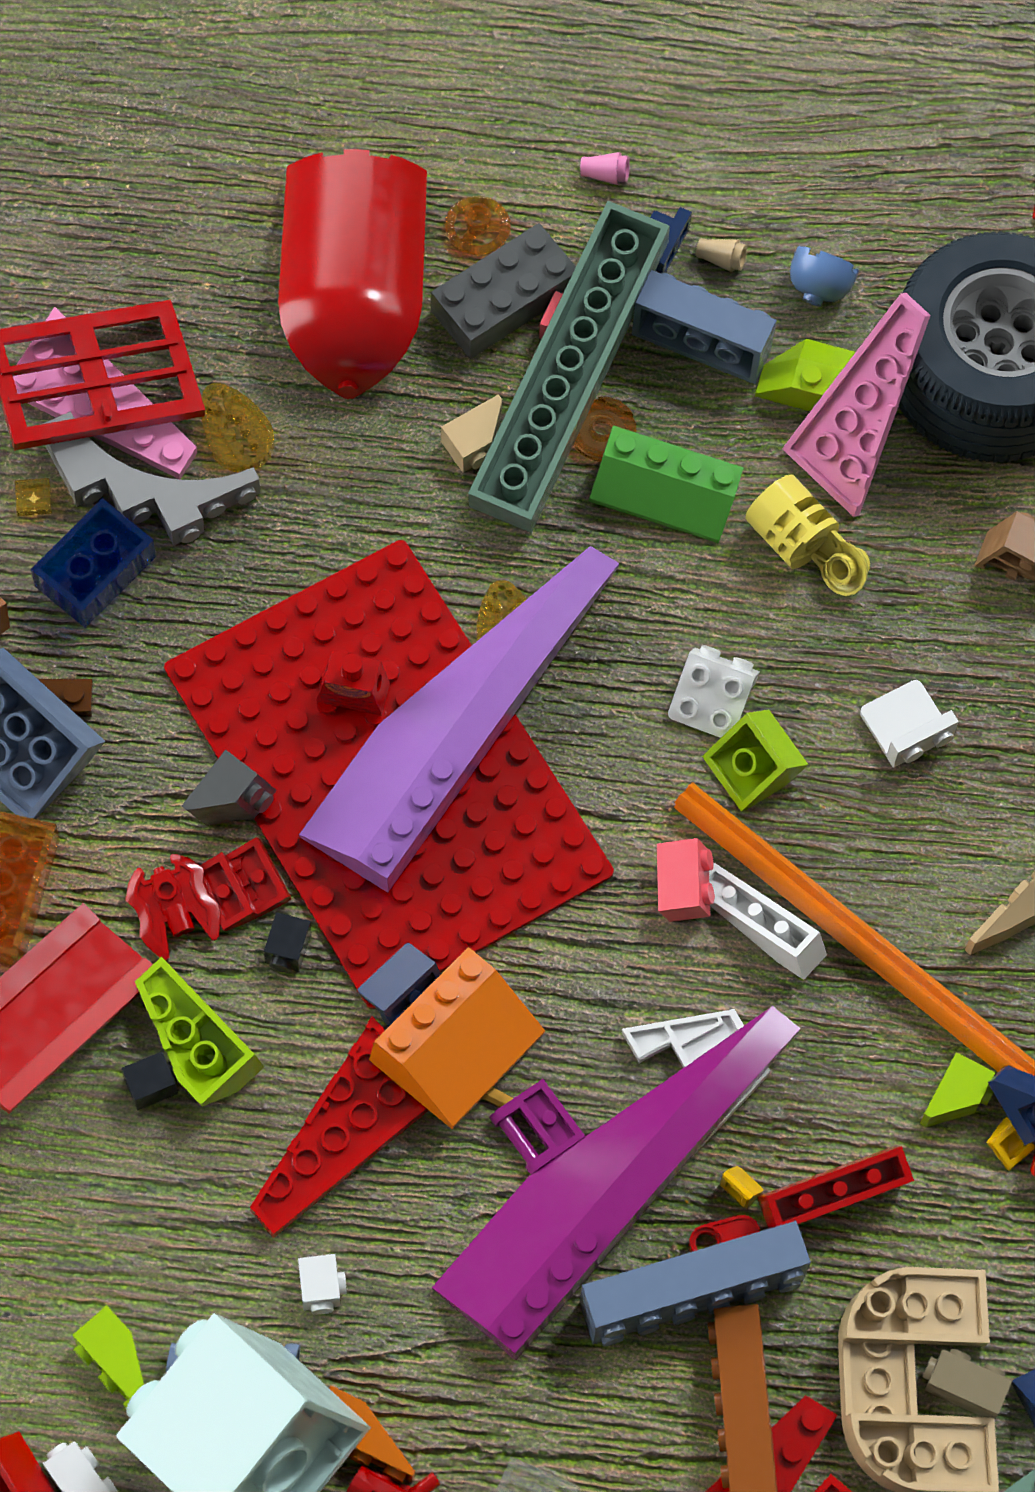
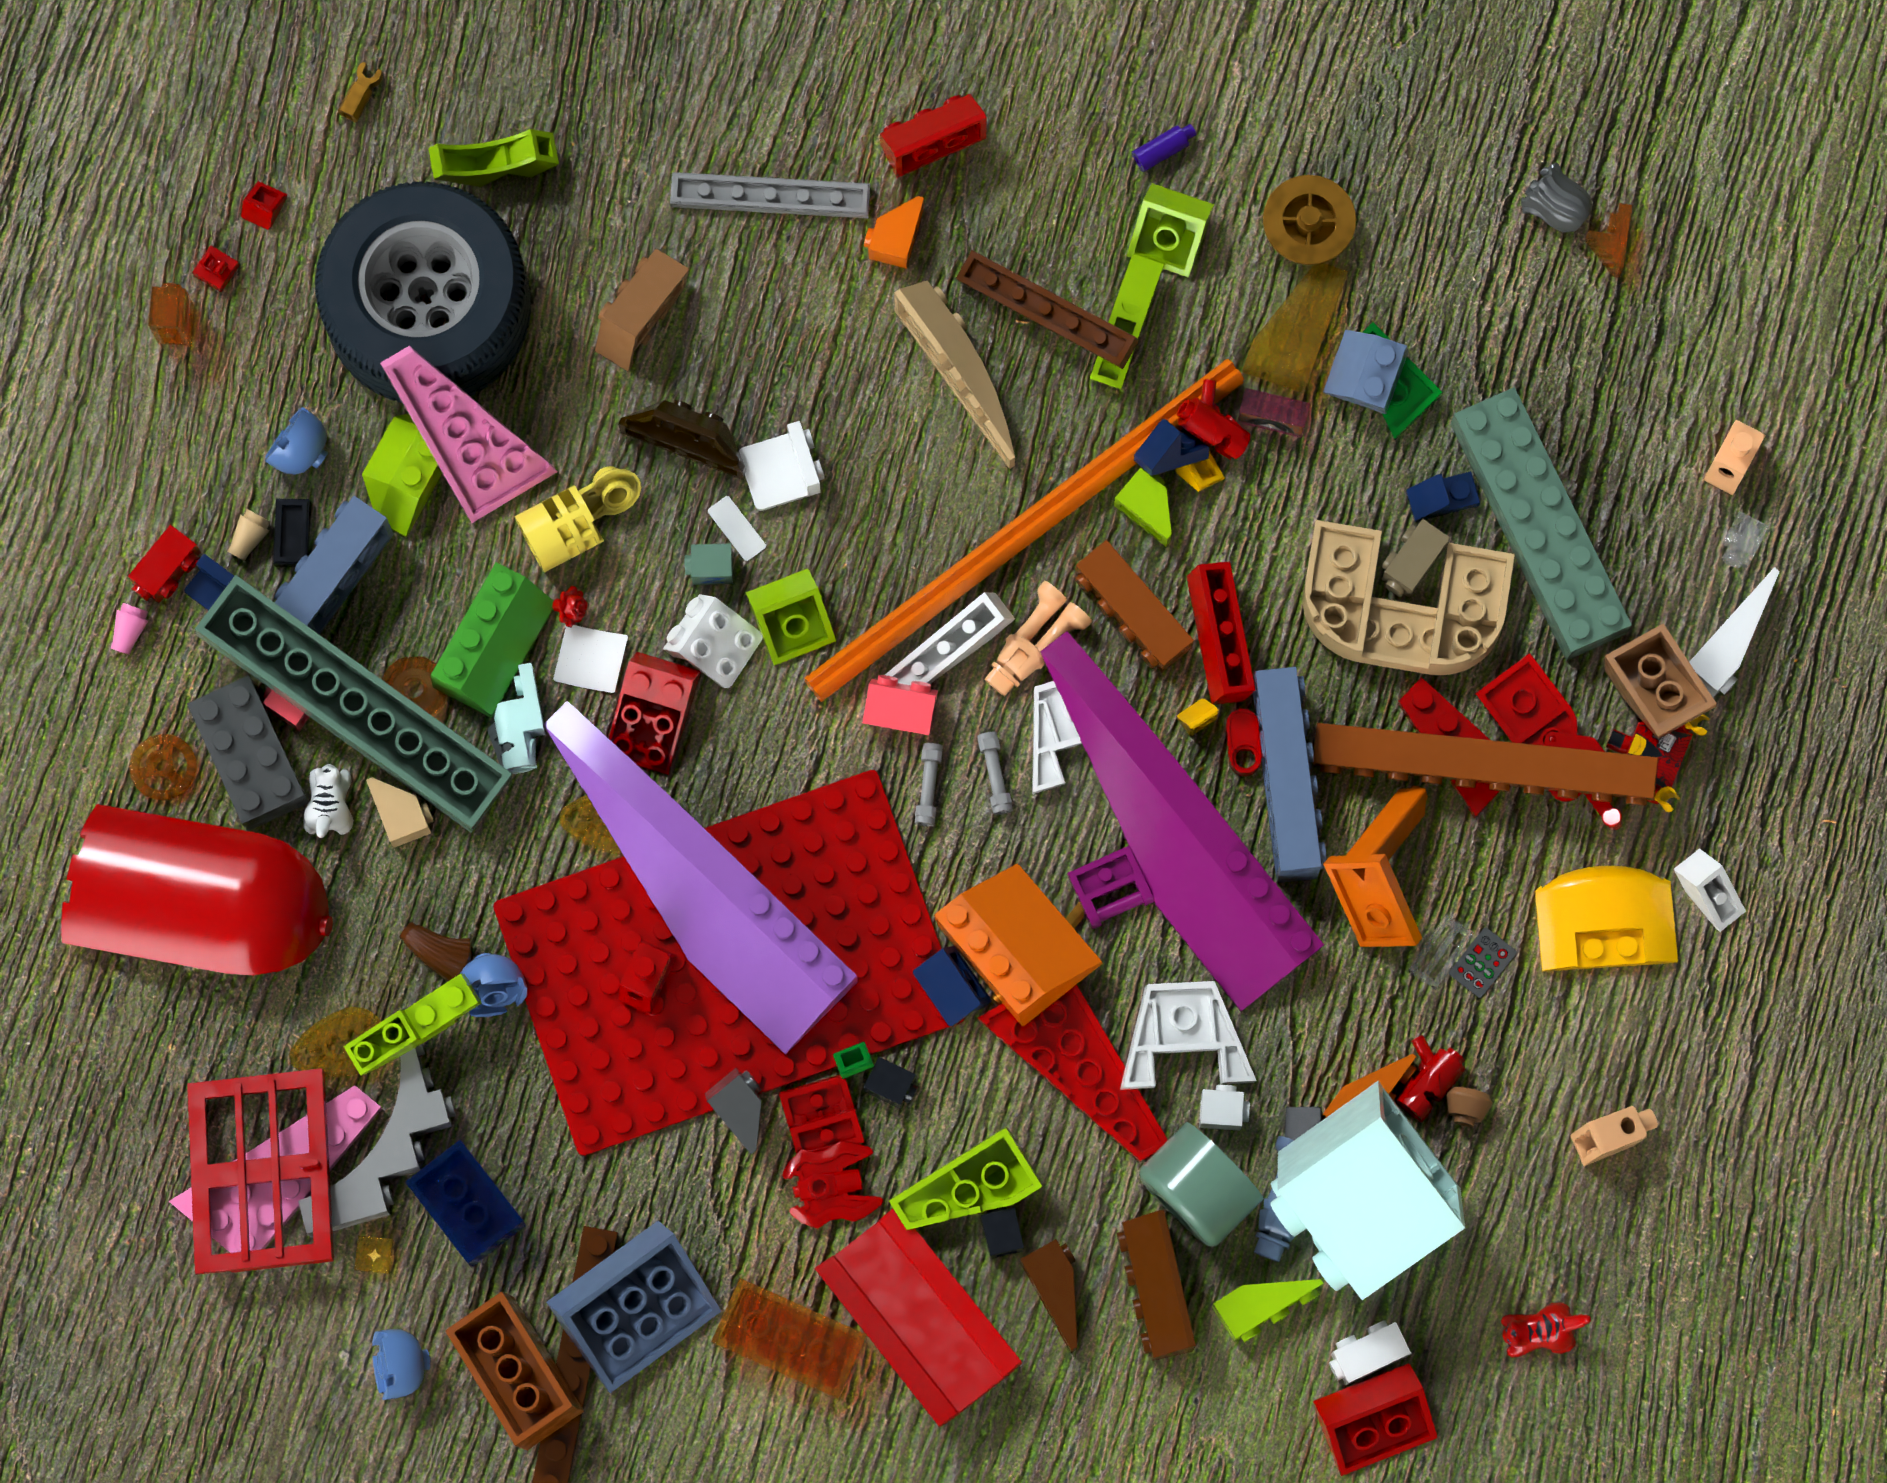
camera: 75 degrees left, 10 degrees up
(101, 1145) = (1053, 1280): none -> reddish brown slope
(118, 1247) = (1157, 1286): none -> reddish brown slope
(227, 1261) = (1199, 1185): none -> sand green piece
(257, 475) = (413, 1025): none -> lime slope
(303, 900) = (853, 1060): none -> green slope
(316, 545) = (496, 983): none -> medium blue cylinder
(324, 1368) = (1300, 1120): none -> slope
(339, 504) = (440, 953): none -> reddish brown piece
(408, 1226) = (1179, 1021): none -> white wing
(470, 370) = (327, 803): none -> white animal
(589, 526) = (517, 723): none -> light aqua plate
(600, 1373) = (1366, 878): none -> orange piece
(628, 647) = (653, 710): none -> red slope
(640, 924) = (931, 757): none -> light grey bar
(663, 979) = (989, 745): none -> light grey bar
(670, 583) = (590, 658): none -> white sticker
(674, 184) = (164, 565): none -> red brick
(717, 552) = (570, 606): none -> red plant
(746, 289) = (291, 531): none -> black tile
(764, 989) = (1021, 657): none -> light nougat piece
(791, 673) = (710, 564): none -> sand green brick
(837, 696) = (736, 528): none -> white sticker
(844, 1096) = (1133, 607): none -> dark orange brick
(920, 140) = (171, 315): none -> clear orange brick
(921, 626) = (686, 434): none -> dark brown wedge
(980, 177) = (216, 268): none -> red tile

